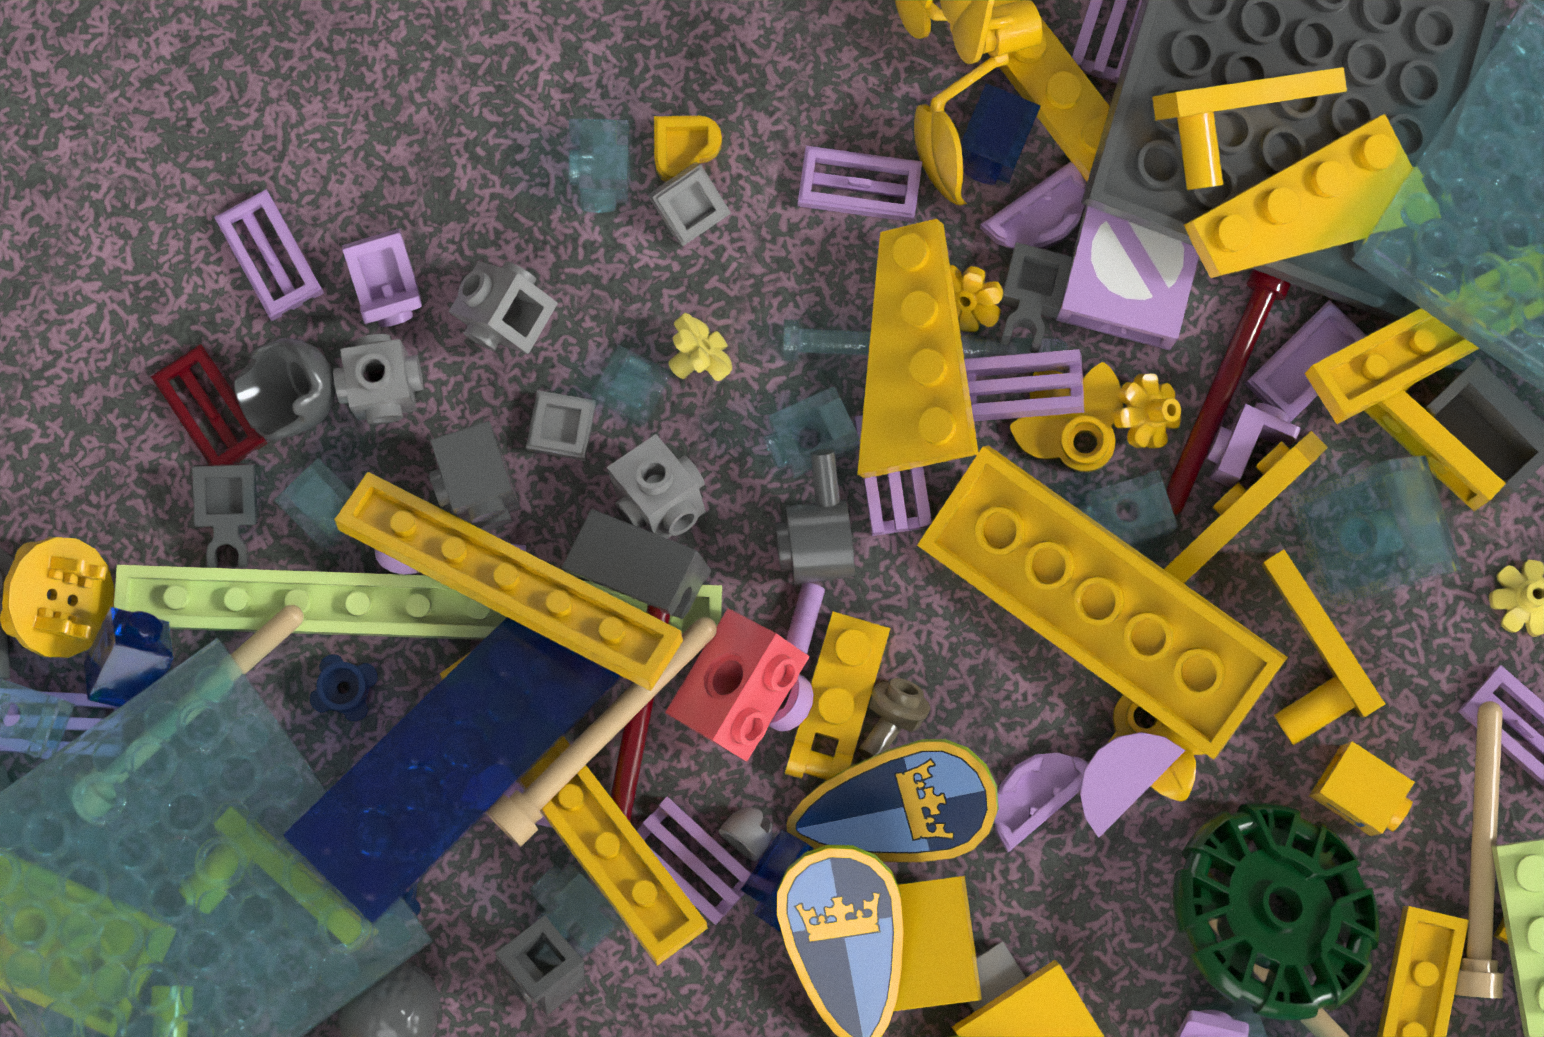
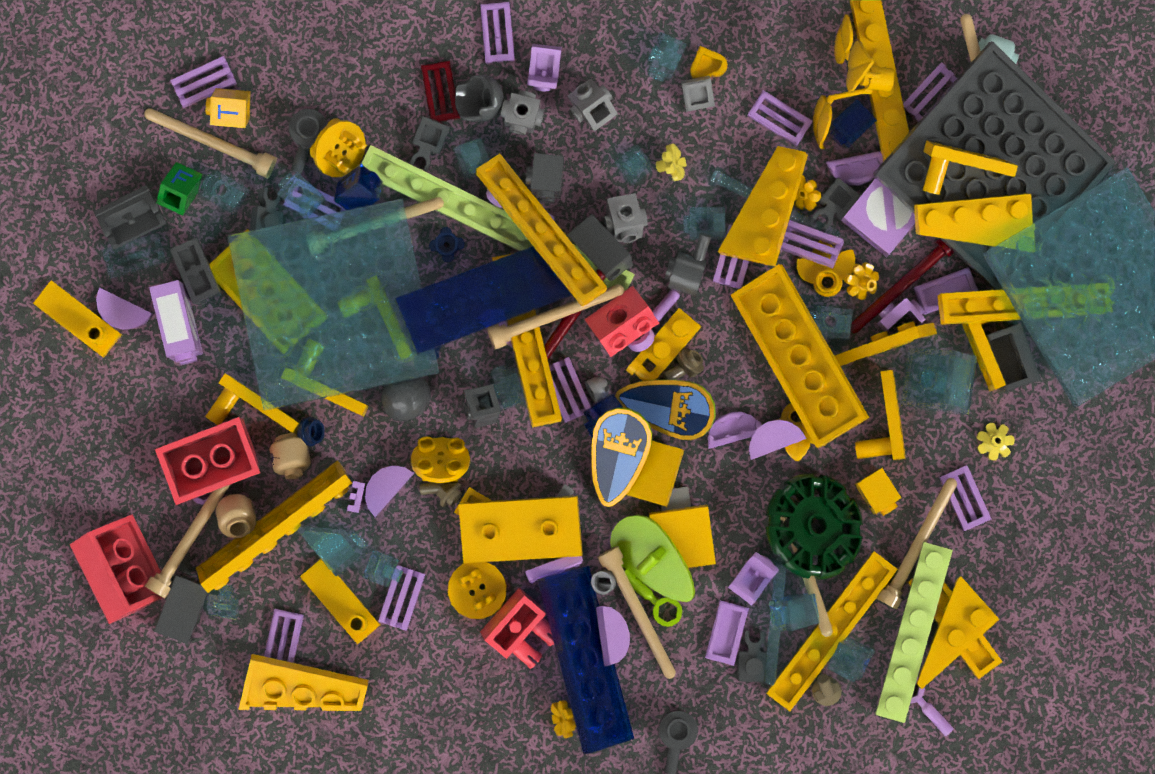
camera: 25 degrees right, 5 degrees up
(561, 425) = (595, 169): light grey tile -> none

